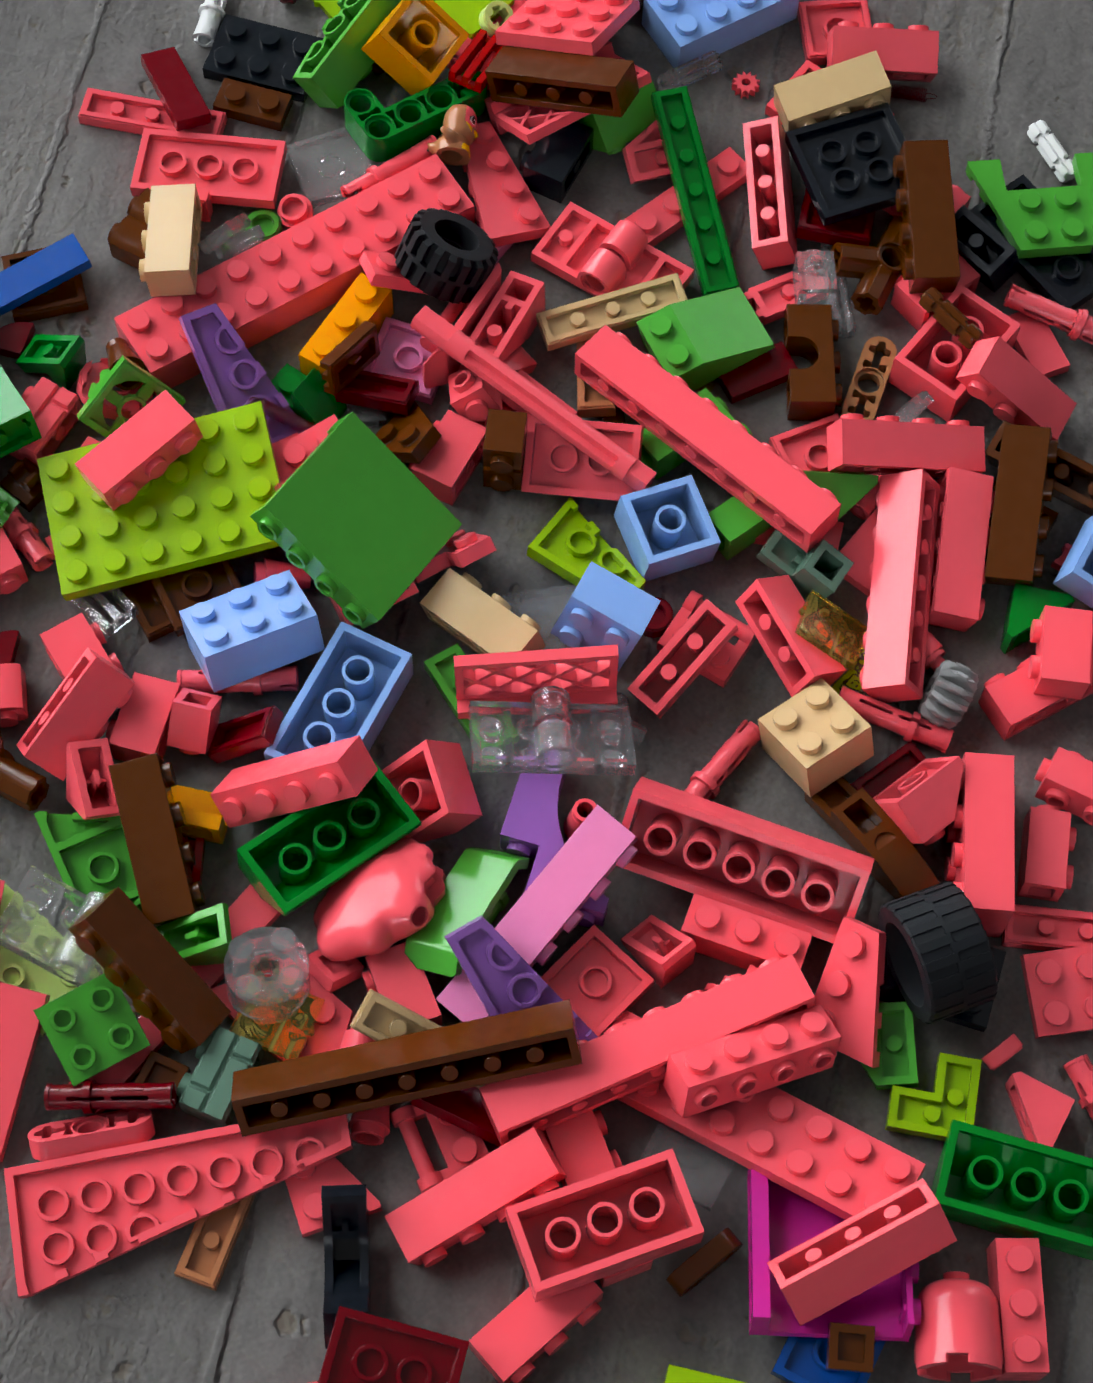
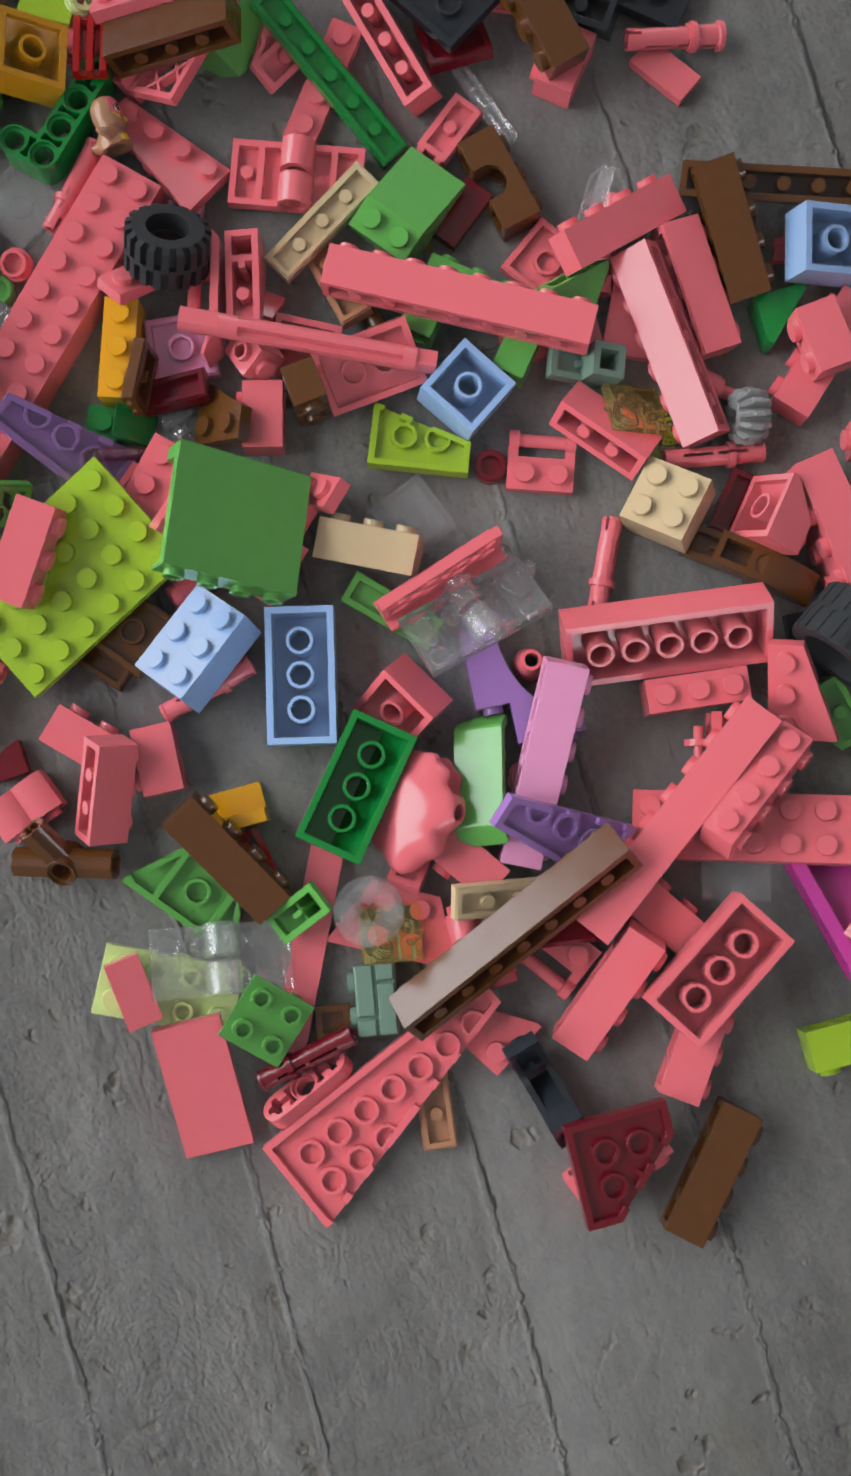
camera: 25 degrees left, 20 degrees up
(89, 779) = (144, 831): coral slope -> none
(120, 619) = (90, 690): clear tile -> none
(149, 971) = (283, 960): reddish brown brick -> none
(193, 721) = (196, 742): coral brick -> none
(245, 734) = (242, 733): dark red tile -> none
(294, 782) = (307, 758): coral brick -> none
(557, 161) = (201, 106): black brick -> none
(598, 980) = (603, 781): coral plate -> none
(605, 613) = (461, 494): light blue brick -> none
(660, 949) = (635, 730): coral slope -> none
(683, 658) = (538, 496): coral brick -> none
(704, 1262) = (795, 926): reddish brown beam -> none
(814, 277) = (468, 107): clear brick -> none
(865, 371) = (558, 166): medium nougat beam -> none
(874, 266) = (506, 69): reddish brown piece -> none
(936, 356) = (610, 114): coral brick -> none
(950, 317) = (598, 88): reddish brown axle -> none
(1014, 387) = (677, 126): coral brick -> none

